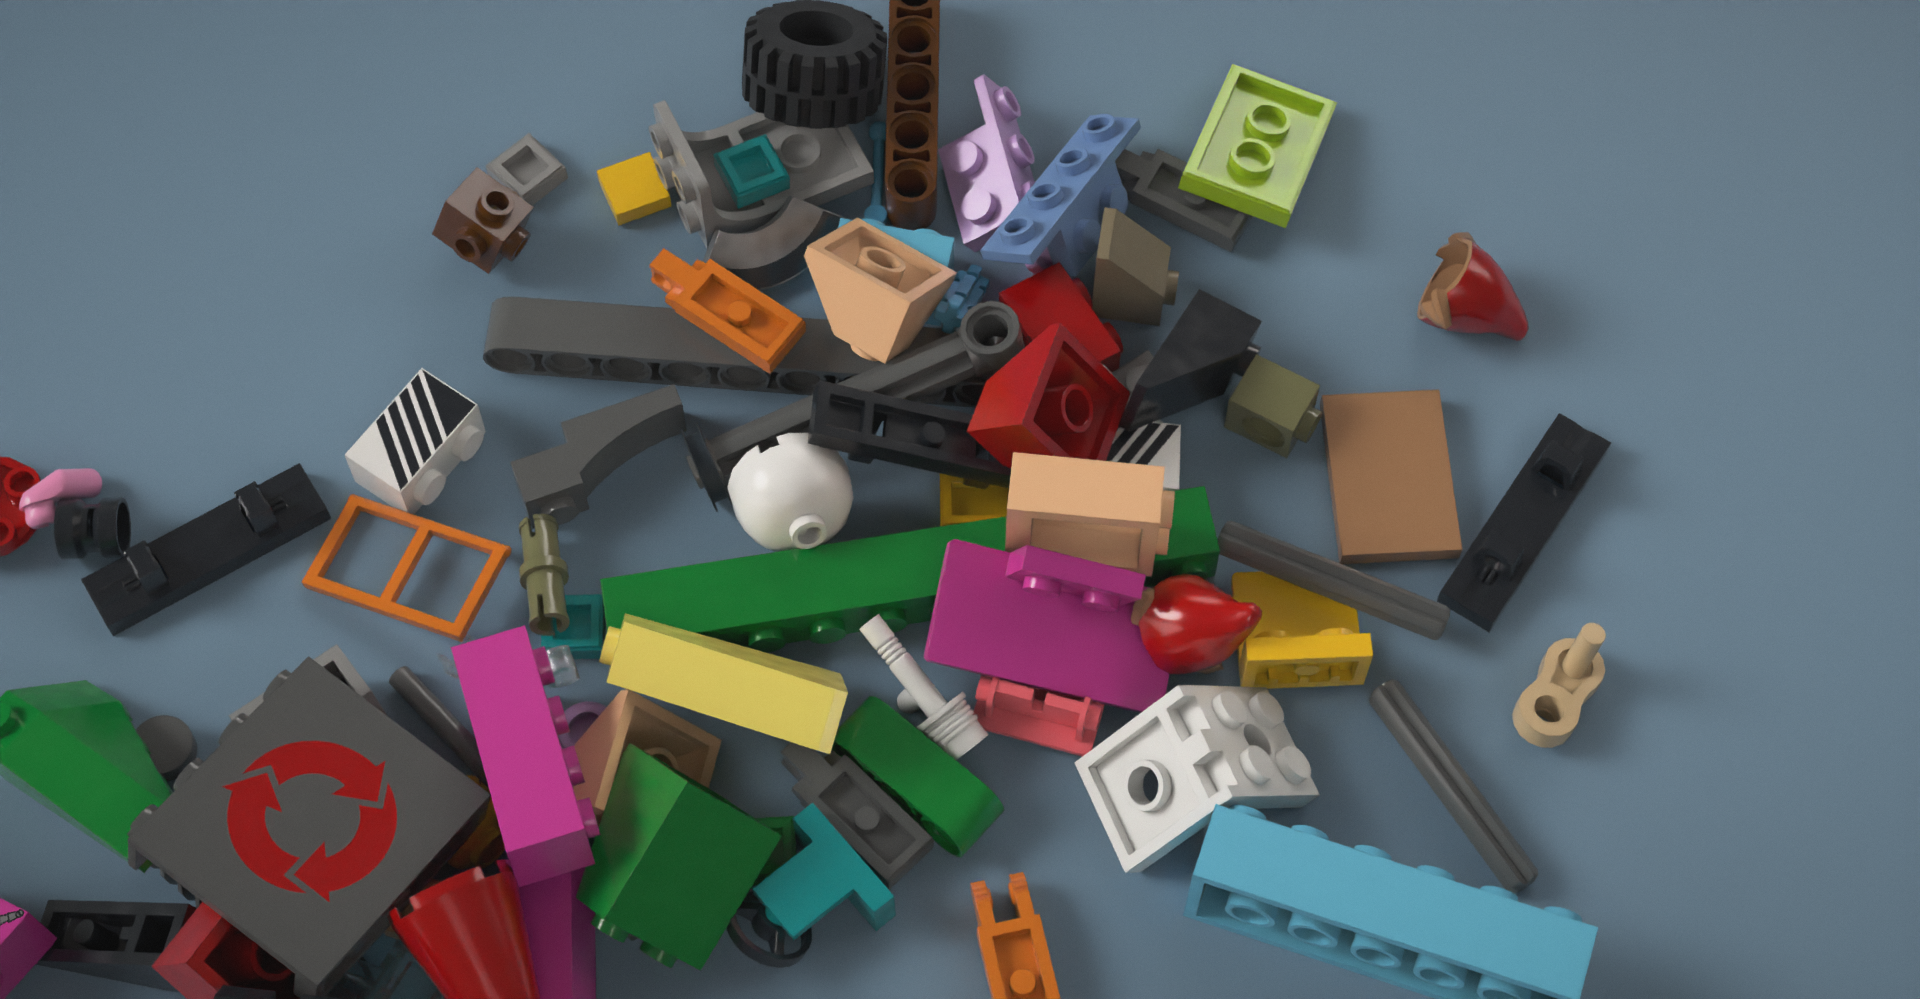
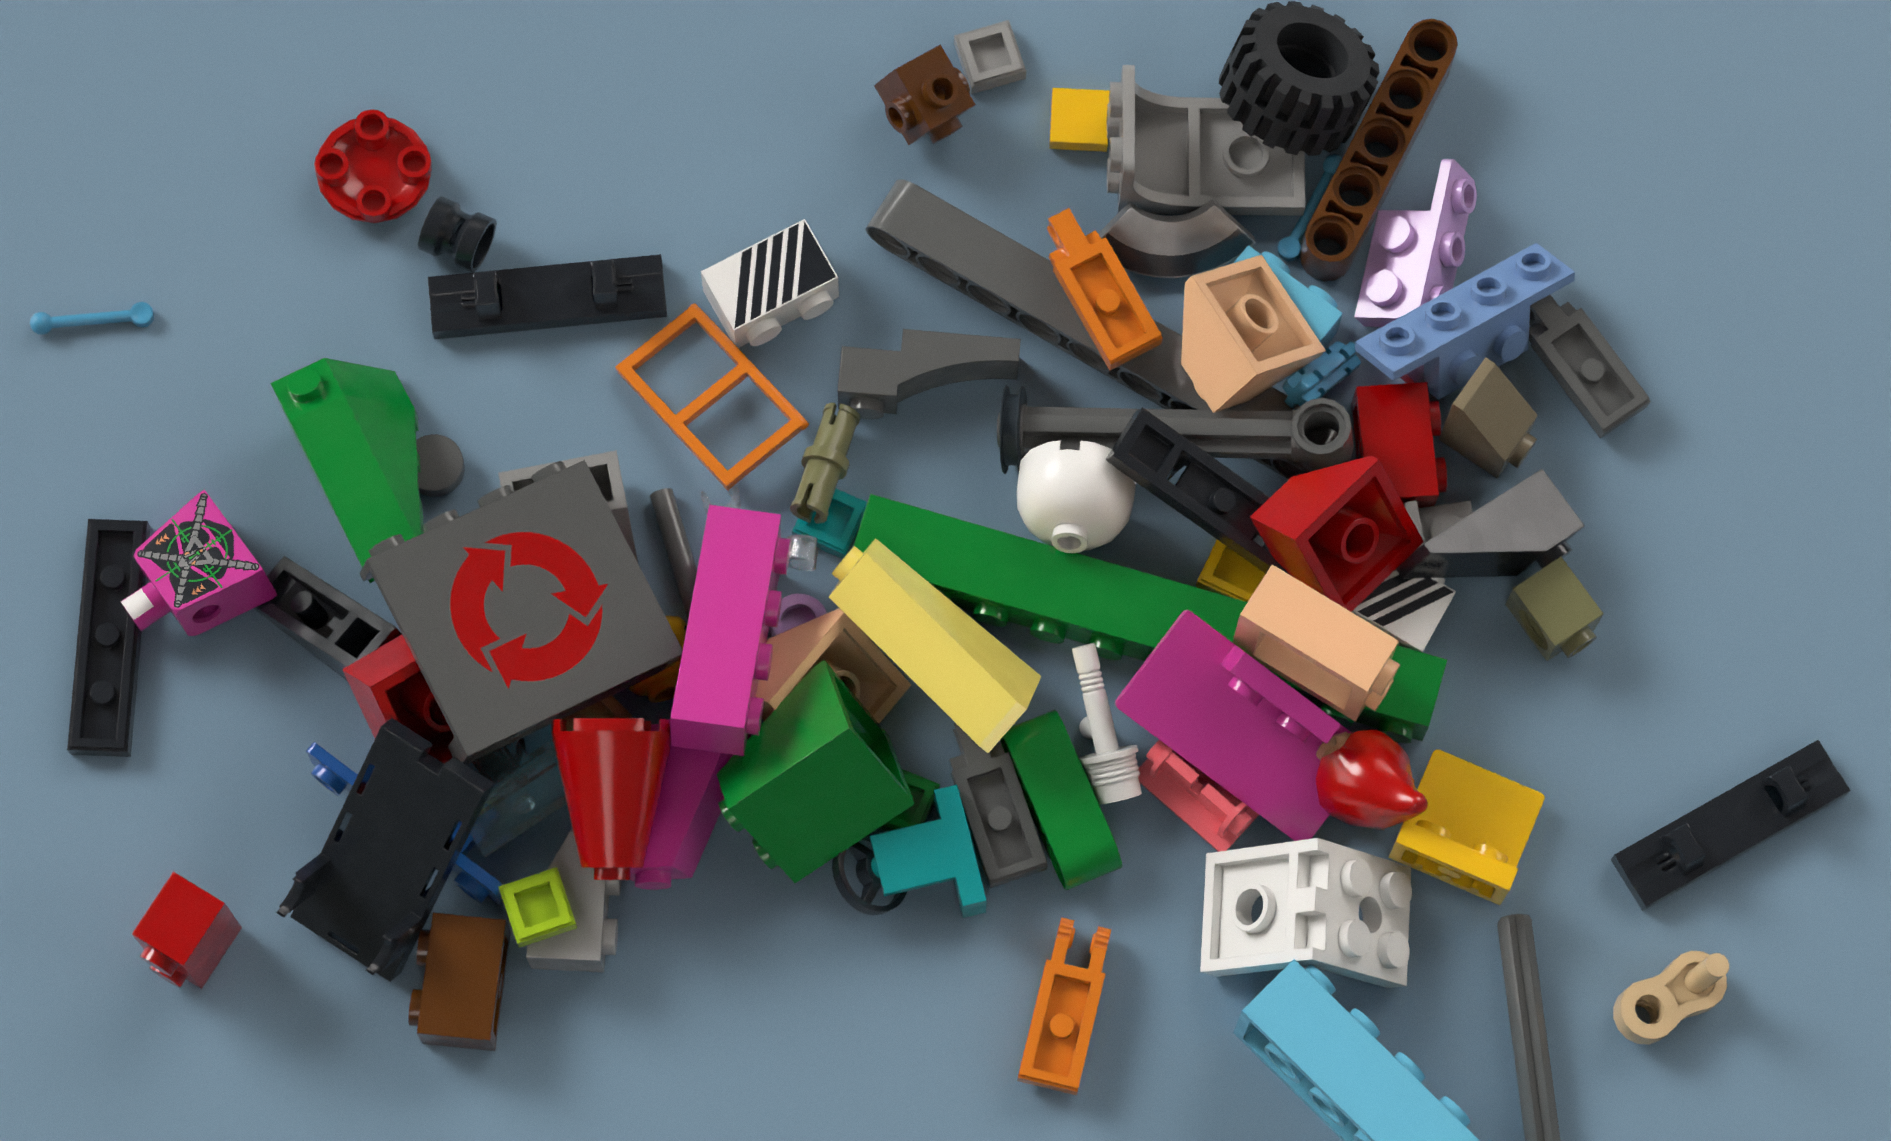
camera: 25 degrees right, 10 degrees up
(61, 484) = (441, 182): bright pink arm -> none
(751, 171) = (1190, 158): teal tile -> none
(1258, 145) = (1679, 346): lime tile -> none
(1333, 580) = (1519, 799): dark grey axle -> none
(1390, 477) = (1630, 724): medium nougat tile -> none
(1471, 293) = (1797, 587): red hat -> none

